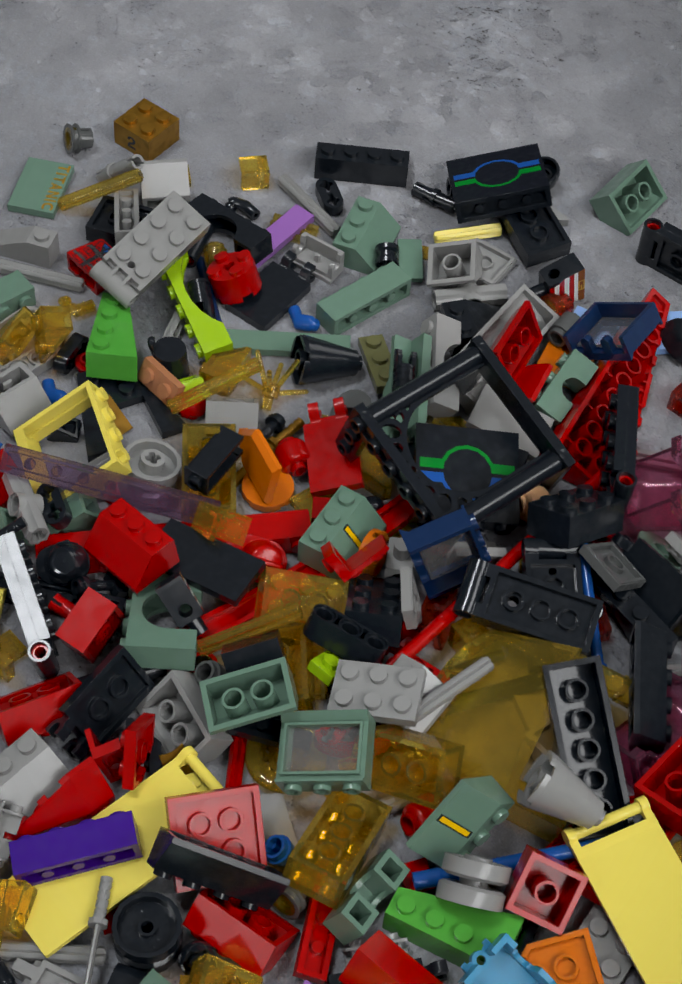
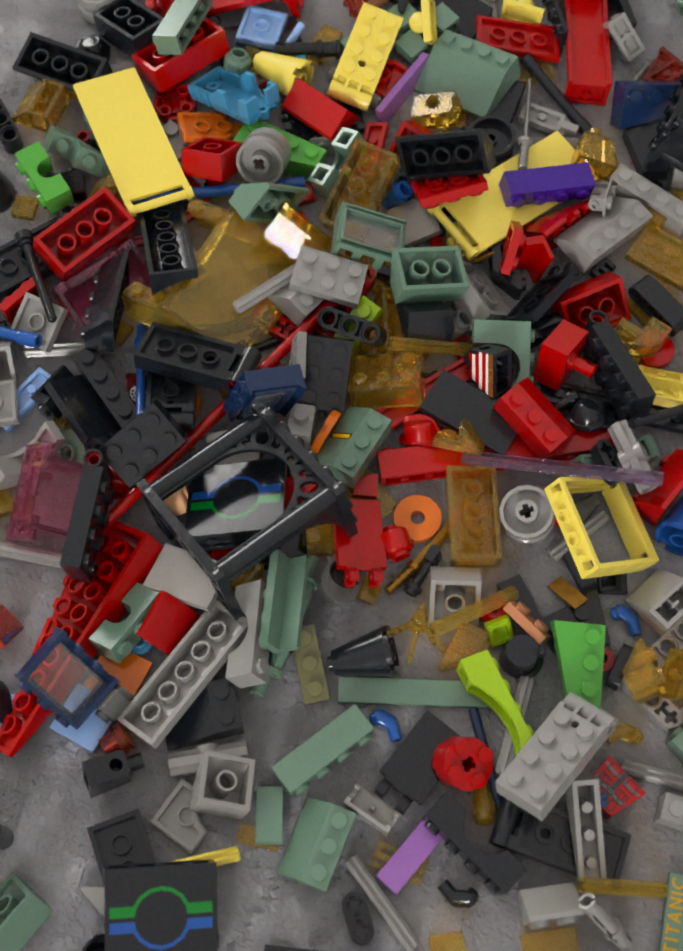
camera: 175 degrees left, 15 degrees up
(201, 295) = (494, 735): black hinge -> none
(213, 461) = (470, 503): black window -> none
(260, 463) = (429, 517): orange tile -> none
(356, 563) = (343, 400): red bracket -> none
(386, 253) = (295, 809): black wheel -> none
(403, 372) = (289, 598): black hinge -> none
(433, 197) = (237, 922): black pin -> none
(518, 340) = (177, 659): red slope -> none
(560, 793) = (198, 197): light grey cone -> none
(612, 566) = (116, 404): dark grey tile -> none

